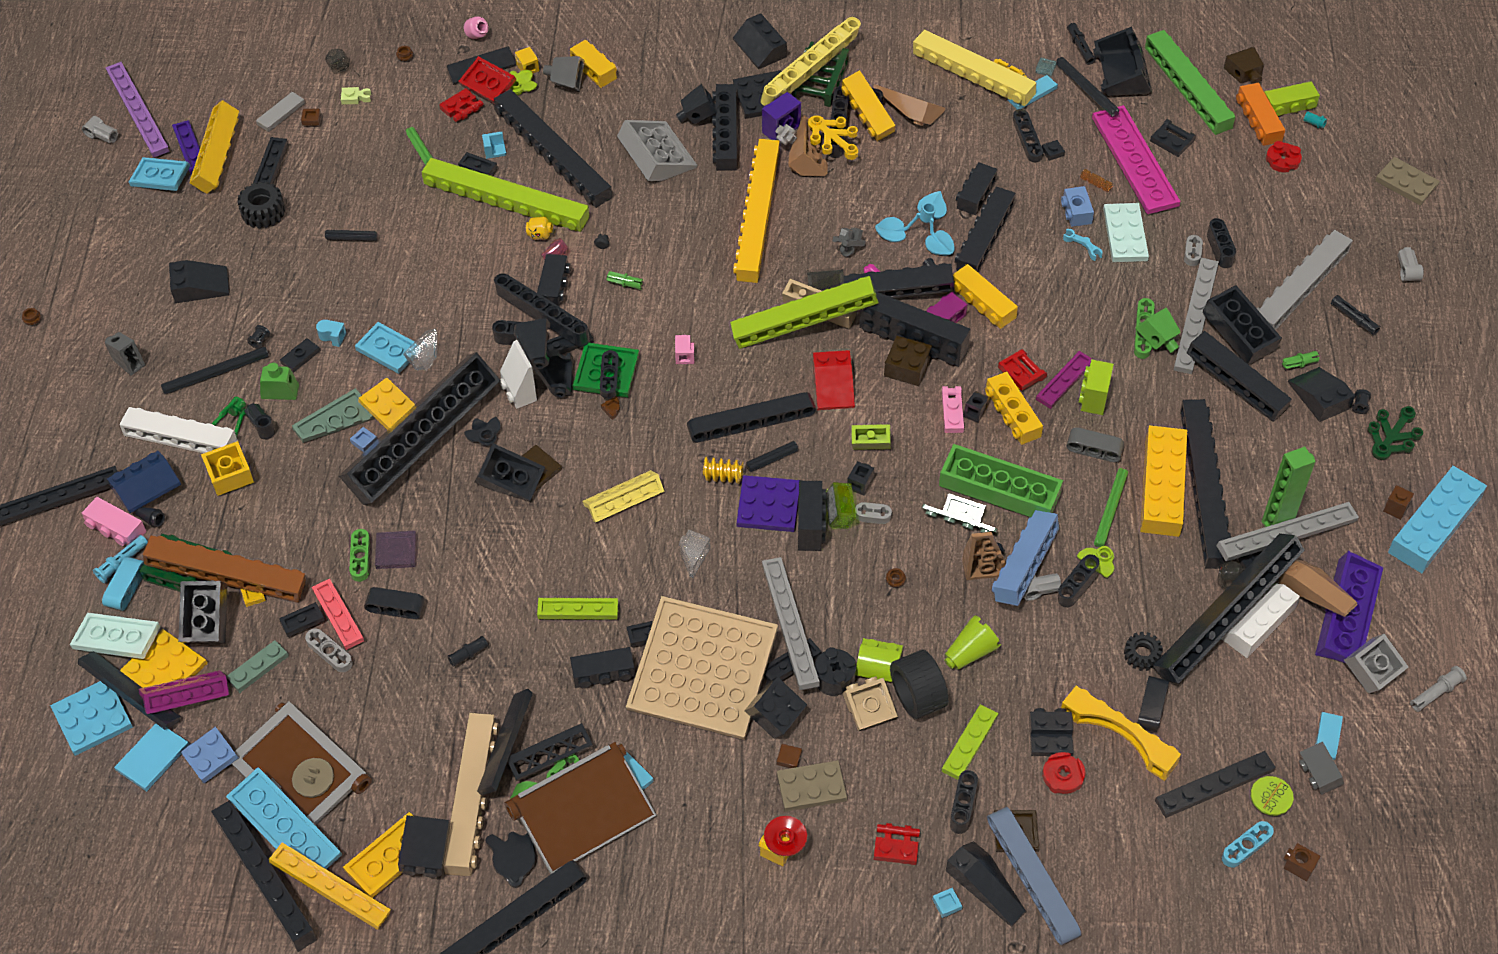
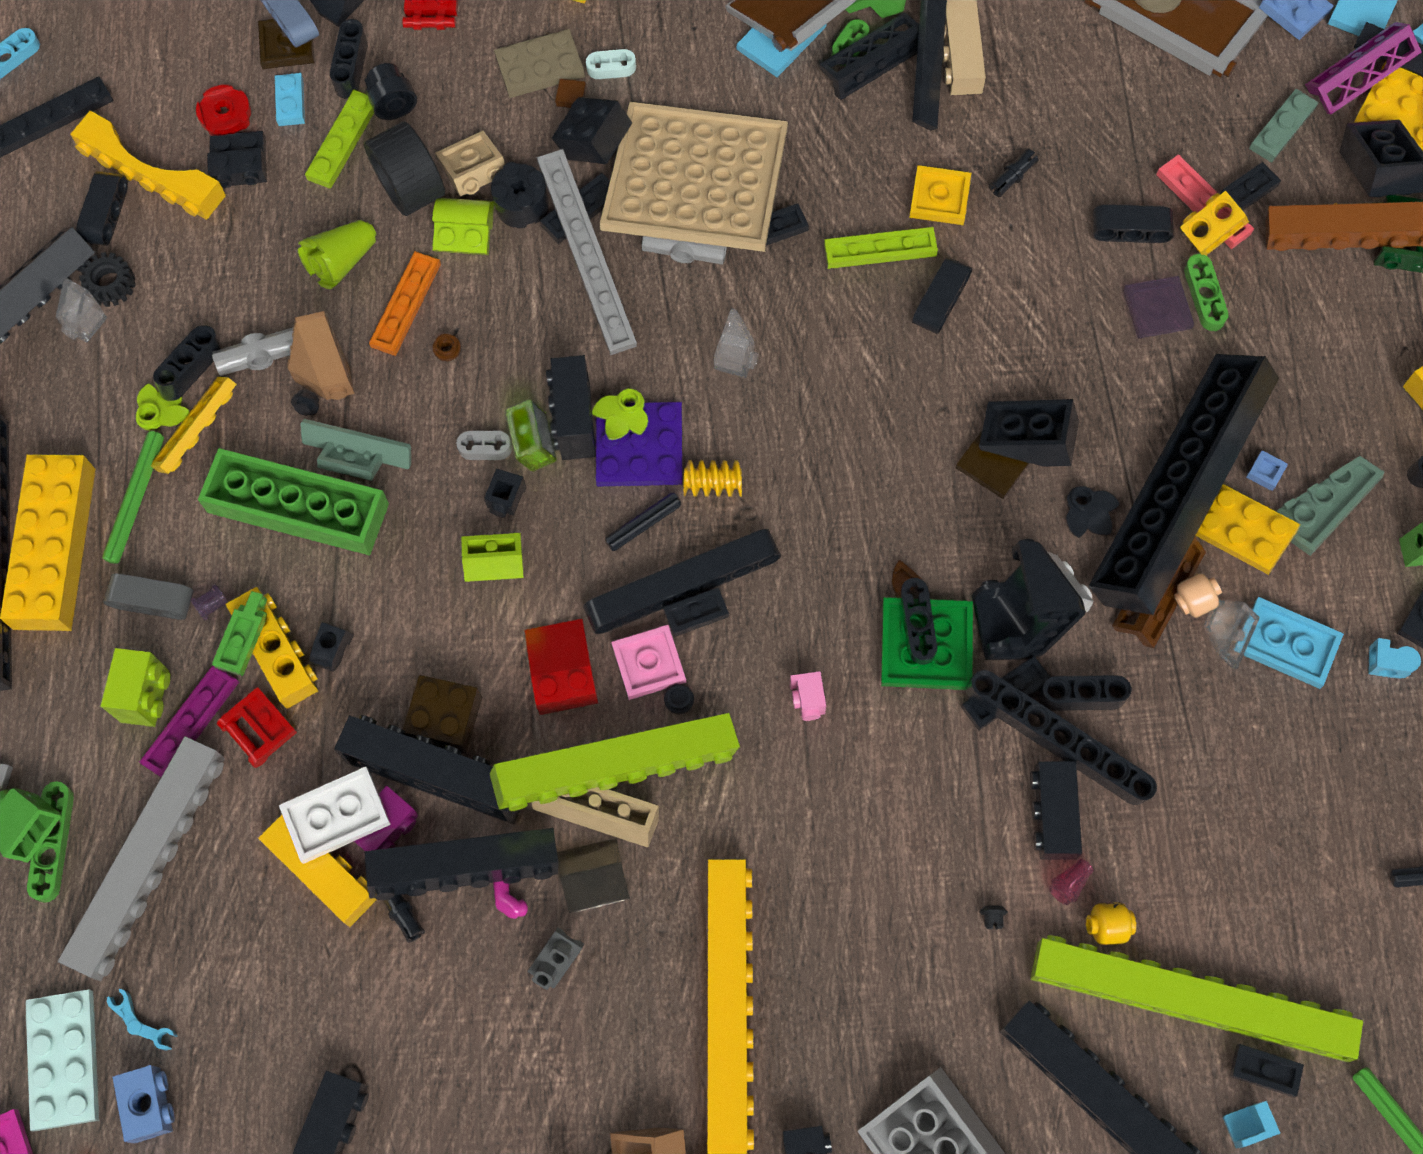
camera: 175 degrees right, 15 degrees up
(328, 642) = (1202, 167): light grey beam -> none
(340, 584) = (1219, 229): none -> yellow brick
(435, 369) = (1198, 595): none -> light nougat head
(525, 641) = (940, 195): none -> yellow plate
(542, 570) = (942, 295): none -> black beam
(602, 667) = (829, 169): black brick -> none
(624, 495) = (850, 419): light yellow fence -> none
(625, 280) = (935, 831): bright green axle -> none
(744, 398) = (696, 612): none -> black plate
(754, 777) = (611, 64): none -> light aqua beam
(762, 358) = (679, 699): none -> black plate
(778, 377) = (648, 662): none -> bright pink plate
(778, 509) = (620, 417): none -> lime plate
(924, 614) = (405, 303): none -> orange tile
(930, 208) = (393, 990): medium azure plant -> none
(930, 762) = (389, 92): none -> black piece
(952, 410) = (369, 640): bright pink plate -> none
(972, 306) = (334, 815): none -> white plate
(986, 229) = (312, 1022): black brick -> none
(1011, 780) = (289, 99): none -> medium azure plate
(1025, 558) = (257, 374): medium blue brick -> none
(1030, 401) = (241, 635): none -> bright green hinge
(1054, 437) = (209, 601): none -> clear purple bush
(1072, 543) = (187, 433): none -> yellow plate
(1086, 312) = (142, 860): none -> light grey brick
(1158, 622) = (78, 312): none -> clear slope

